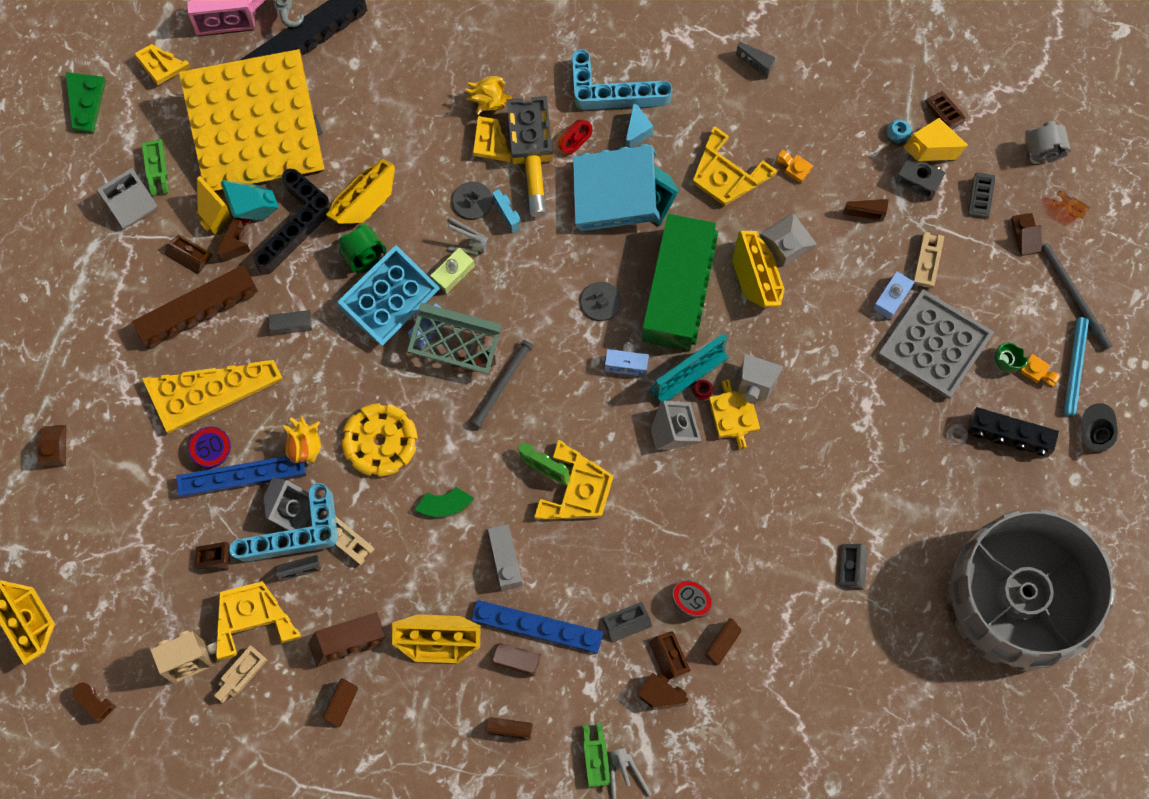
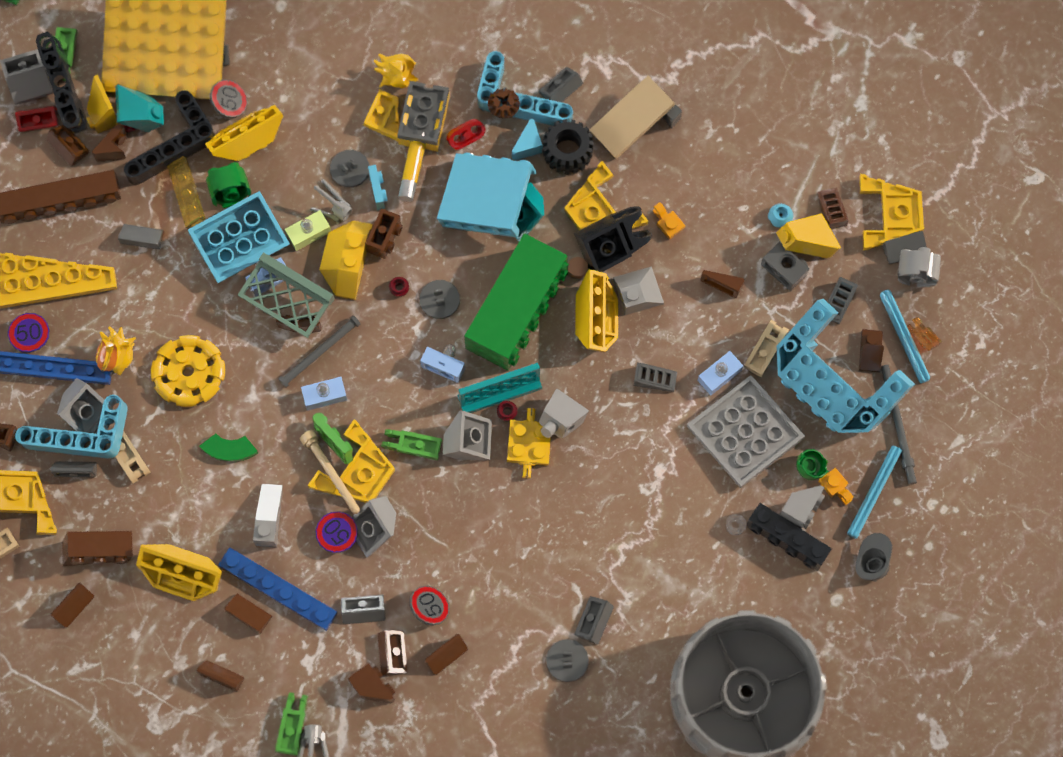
camera: 15 degrees right, 0 degrees up
(149, 236) = (37, 118): none -> red slope
(160, 183) = (57, 67): none -> black piece
(322, 267) = (186, 192): none -> clear yellow tile
(333, 165) = (228, 98): none -> piece
(497, 287) = (345, 258): none -> yellow wedge
(520, 423) = (324, 393): none -> light blue piece
(522, 472) = (310, 440): none -> tan piece
(527, 254) = (383, 233): none -> reddish brown brick
(558, 294) = (399, 281): none -> dark red plate
(577, 554) = (336, 532): none -> piece
(607, 103) = (504, 111): none -> reddish brown gear
(611, 537) = (375, 524): none -> light grey slope
(624, 447) = (414, 444): none -> bright green hinge
(650, 65) = (561, 85): none -> dark grey slope
(680, 107) = (568, 161): none -> black tyre
(725, 234) = (577, 267): none -> nougat tile
(729, 76) = (632, 117): none -> tan tile
(750, 197) = (612, 239): none -> black brick
(834, 324) = (641, 367): none -> dark grey slope
(840, 613) = (567, 660): none -> dark grey piece
(1000, 280) = (823, 387): none -> medium azure wedge
(1009, 95) = (900, 211): none -> yellow wing
(1016, 132) = (894, 246): none -> dark grey slope
(1017, 399) = (800, 505): none -> light grey slope
(1054, 212) = (904, 336): none -> medium azure axle

